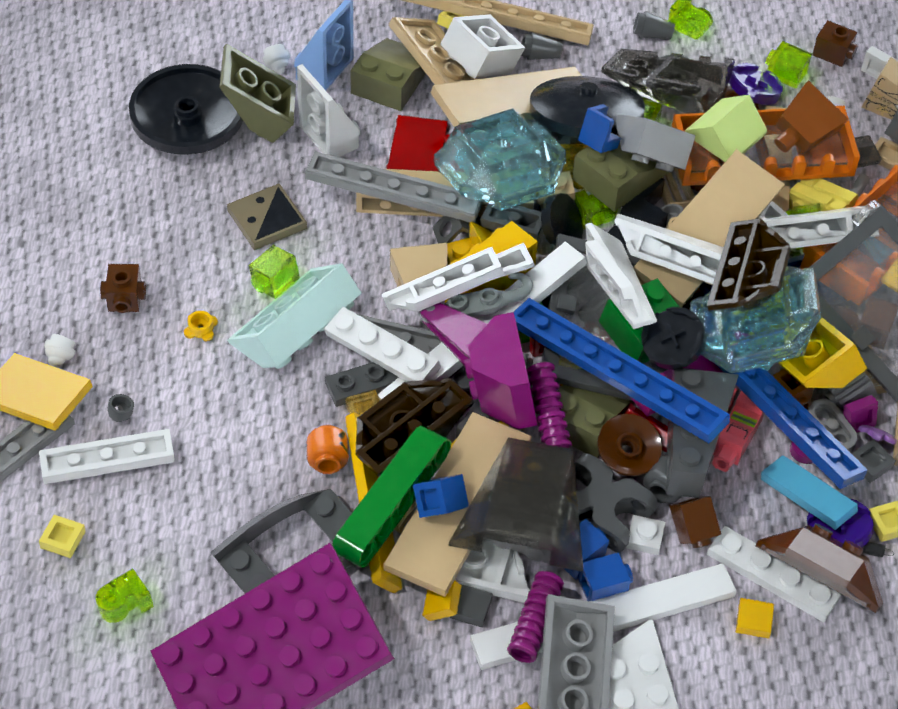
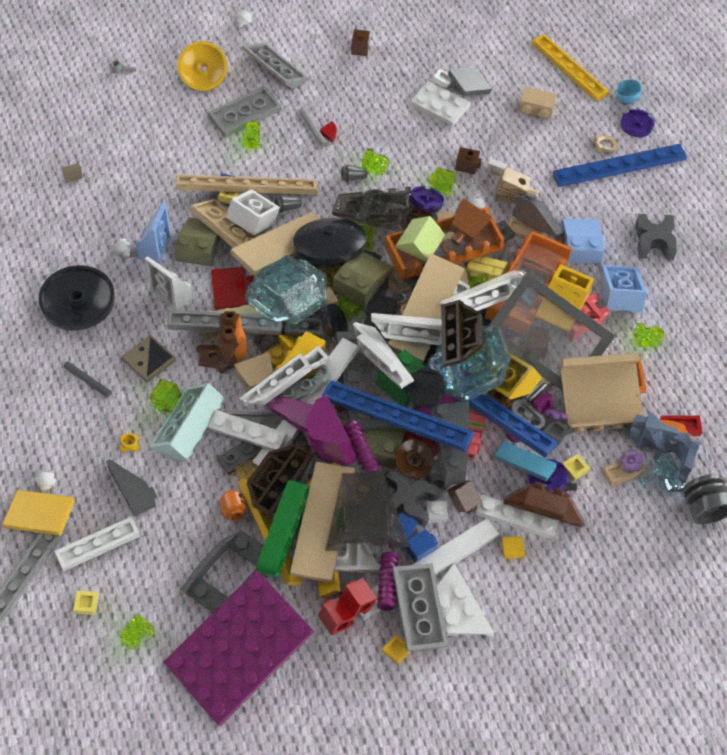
camera: 15 degrees left, 5 degrees up
(123, 288) = (74, 430): reddish brown brick -> none
(125, 407) = (99, 509): dark grey hinge -> none
(168, 225) = (88, 379): none -> dark grey bar
(185, 391) = (134, 489): none -> dark grey slope
(257, 94) = (121, 278): olive slope -> none
(392, 214) = (230, 344): none -> reddish brown hips
(441, 496) = (313, 521): blue panel -> none
(447, 645) = (340, 612): none -> red brick
(597, 130) = (344, 259): blue panel -> none
(654, 142) = (379, 259): light grey slope -> none

